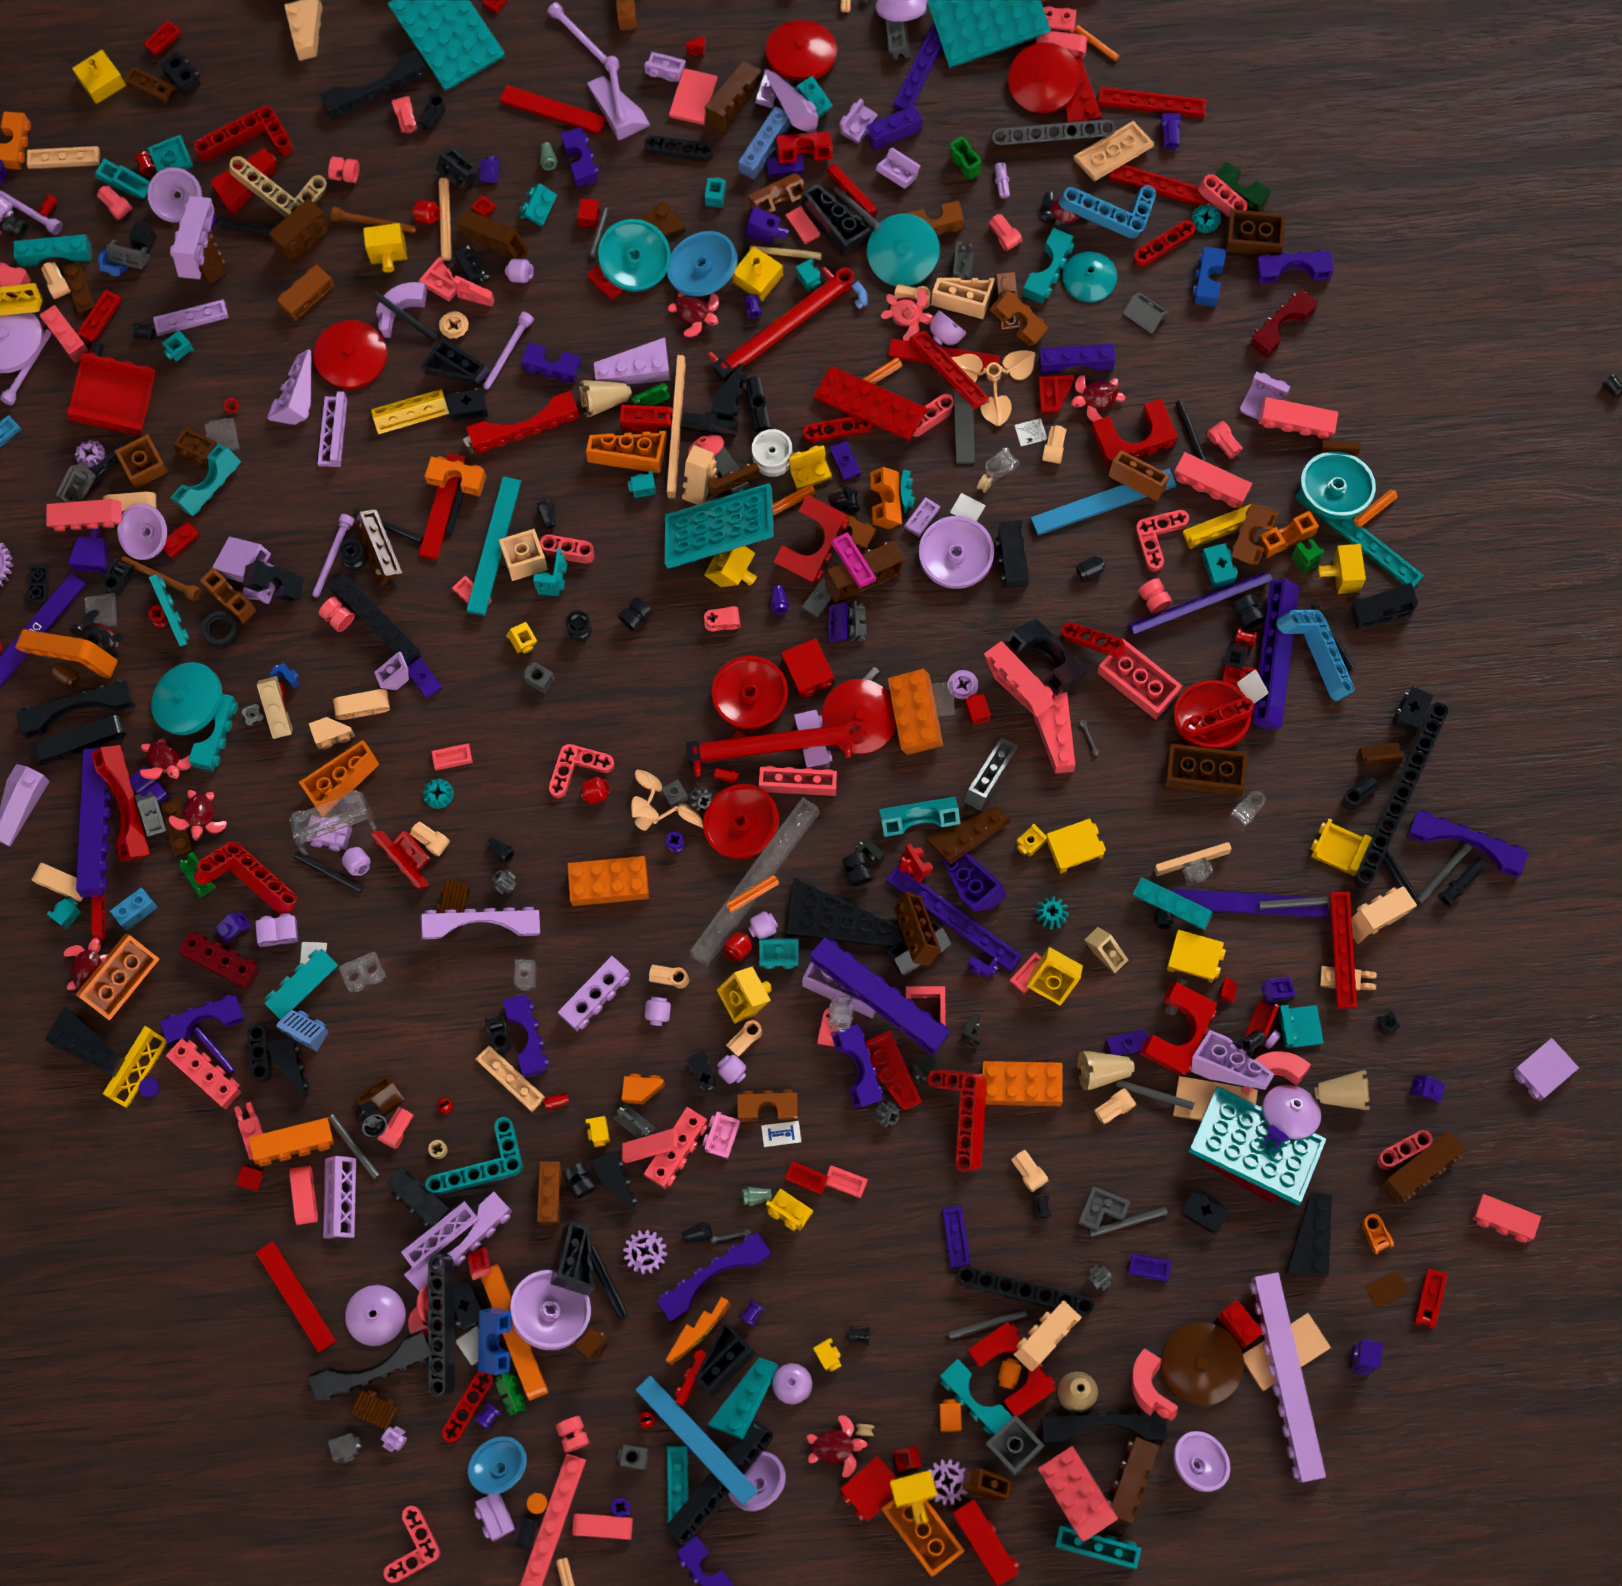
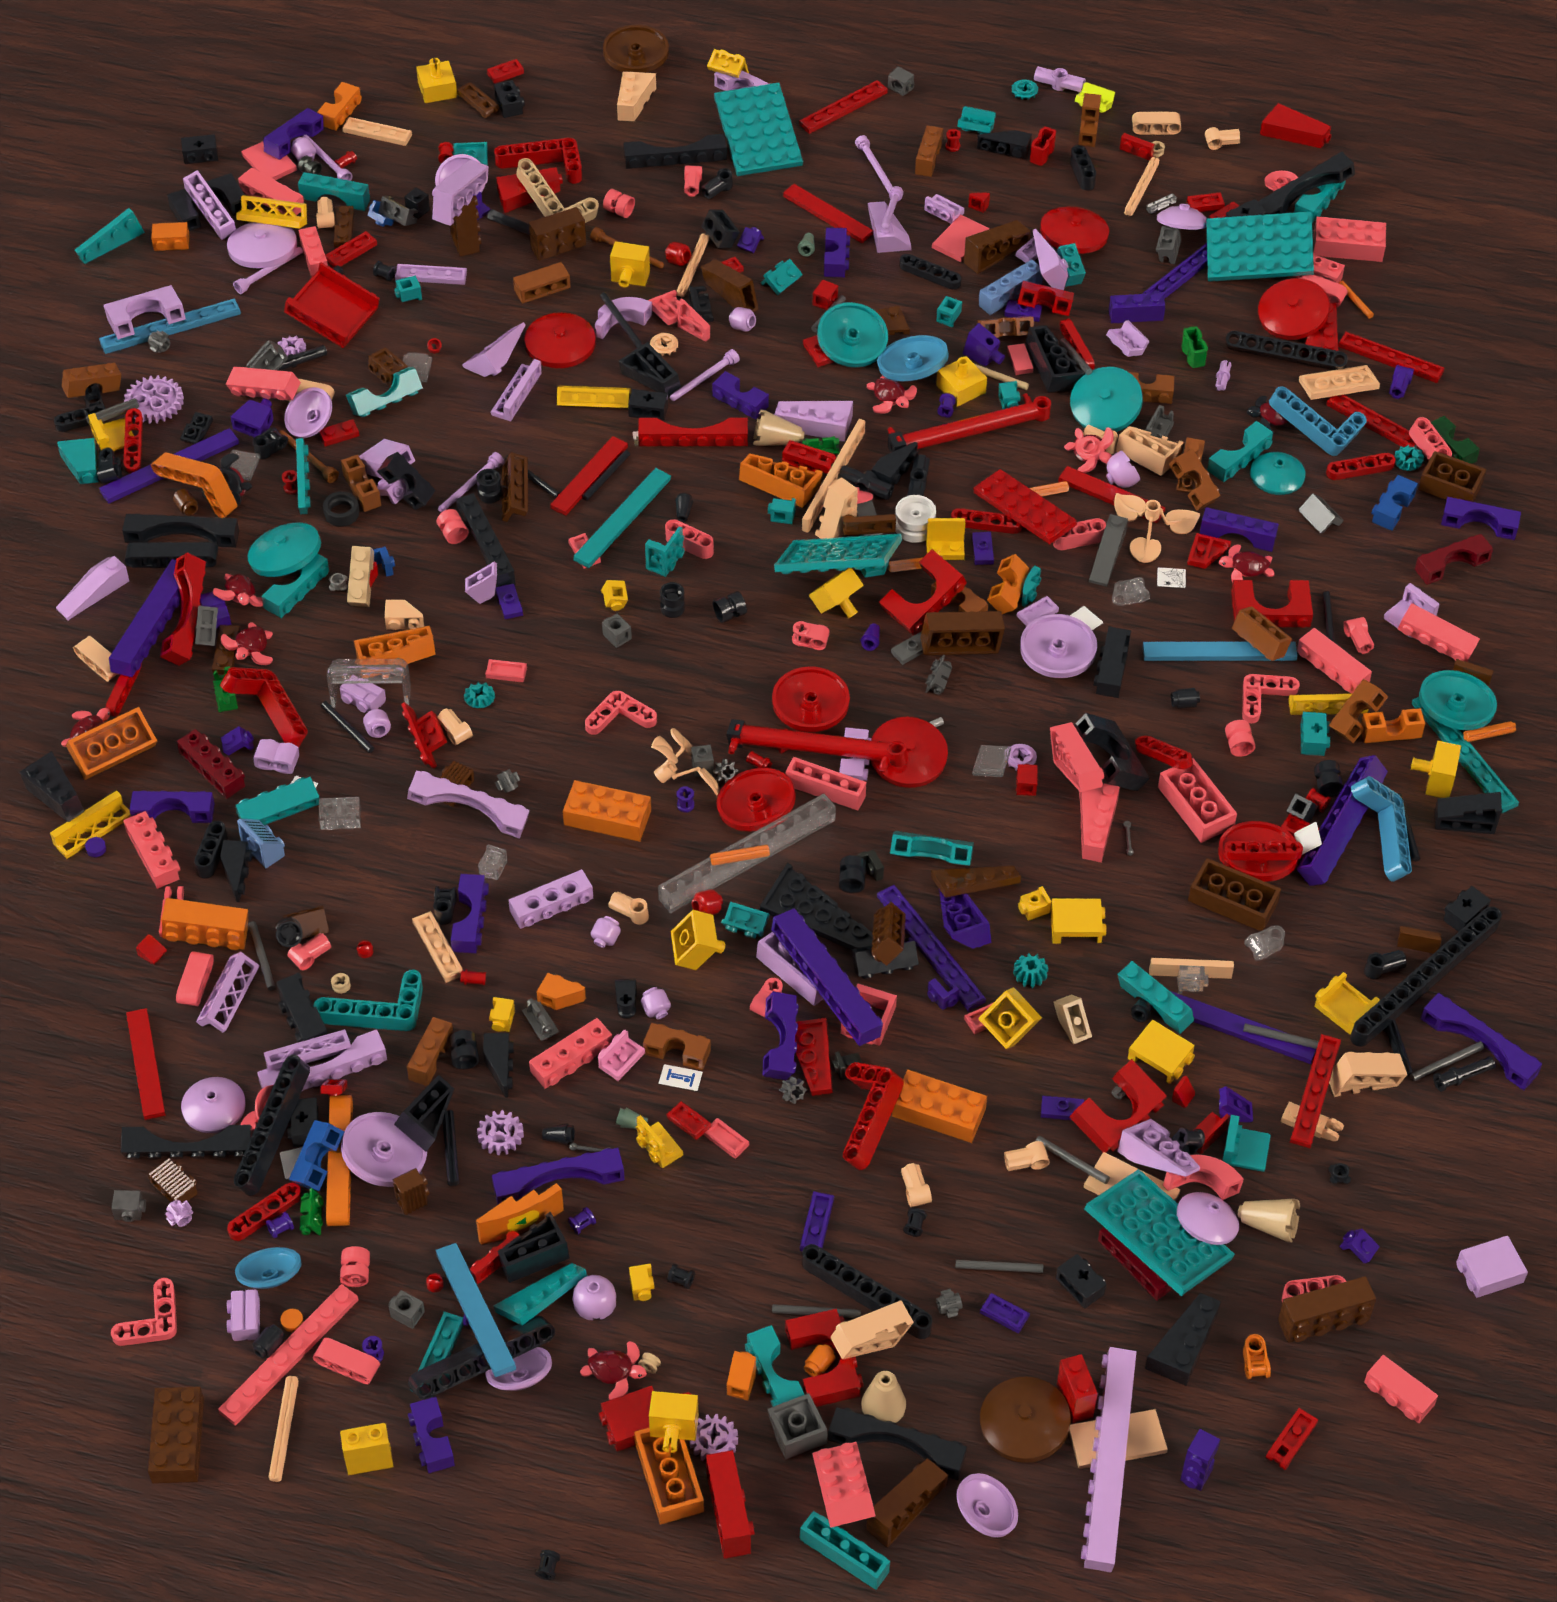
camera: 15 degrees right, 20 degrees down
(65, 912) = (90, 683): teal brick -> none
(117, 205) = (406, 176): coral piece -> none
(122, 179) = (419, 157): teal slope -> none
(133, 909) = (154, 697): dark azure brick -> none
(141, 461) = (334, 362): dark orange brick -> none
(214, 1050) = (170, 836): dark purple bar -> none
(361, 704) = (442, 603): light nougat beam -> none
(441, 469) = (600, 443): orange arch -> none
(501, 851) = (517, 757): black cone -> none
(523, 554) = (644, 526): light nougat slope -> none
(595, 790) = (628, 734): red head -> none
(649, 1146) = (545, 1039): coral tile -> none
(742, 1039) = (680, 980): light nougat piece -> none
(763, 925) = (739, 892): lavender head -> none
(808, 668) = (875, 697): red brick -> none
(837, 622) = (920, 670): dark purple plate -> none
(841, 1013) = (782, 976): clear brick -> none
(844, 499) = (971, 573): black piece -> none
(853, 560) = (954, 612): dark pink tile -> none
(854, 124) = (1099, 295): lavender bracket -> none
(862, 295) = (1053, 424): medium blue arm -> none
(913, 865) = (911, 886): red hips -> none
(915, 712) = (964, 761): orange brick -> none
(949, 369) = (1111, 499): red tile -> none
(972, 1026) = (907, 1044): pearl dark grey bracket -> none
(984, 483) = (1109, 602): tan bush -> none
(987, 1484) = (753, 1448): reddish brown brick -> none
(990, 774) = (1012, 838): dark grey slope -> none
(1007, 236) = (1209, 417): coral piece -> none
(1054, 448) = (1189, 592): light nougat piece -> none
(1101, 1203) = (977, 1238): dark grey plate -> none
(1102, 1069) = (1028, 1118): tan cone -> none
(1143, 1390) = (960, 1402): coral arch -> none
(1199, 602) = (1271, 757): dark purple tile -> none
(1273, 1039) = (1213, 1148): lavender tile -> none
(1276, 1134) = (1183, 1224): dark purple tile -> none
(1307, 558) = (1404, 747): green hinge -> none
(1387, 1289) = (1249, 1417): reddish brown sticker -> none

